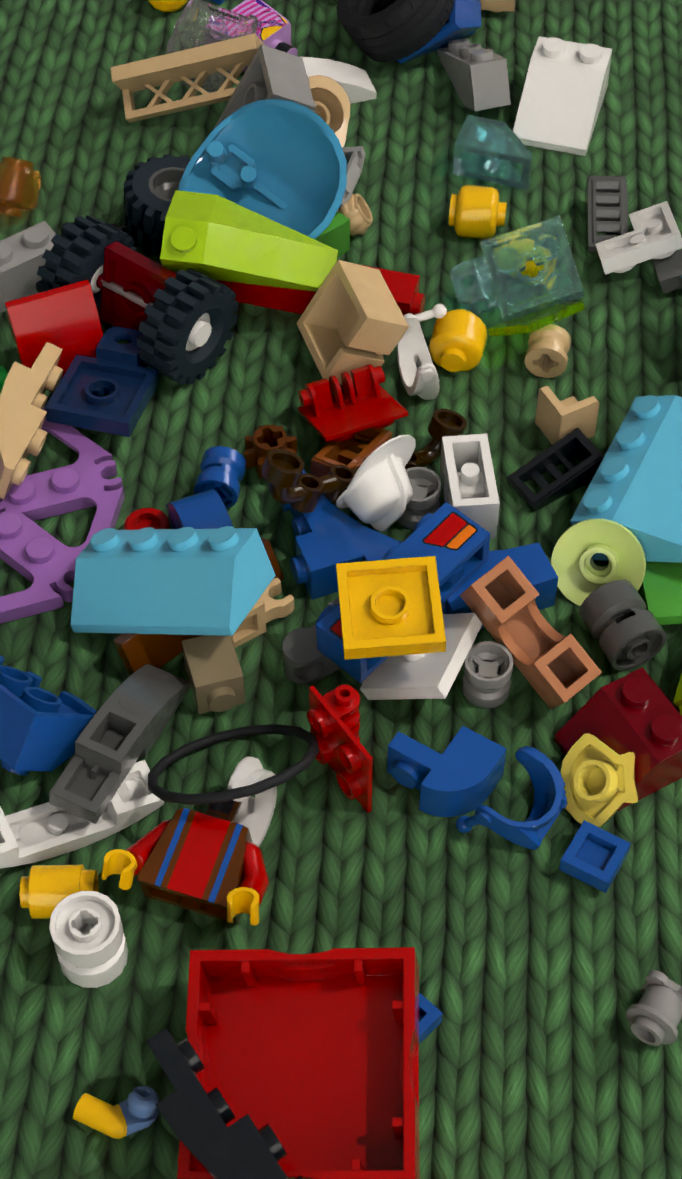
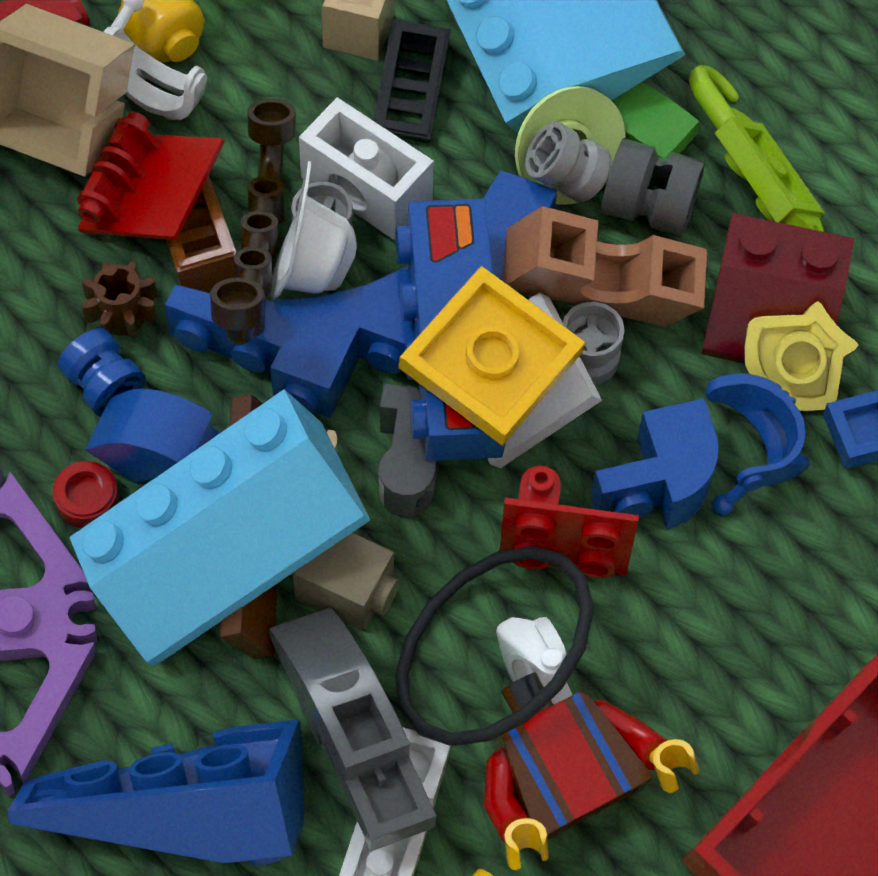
camera: 50 degrees left, 10 degrees up
(579, 566) = (564, 160): none -> light grey wheel

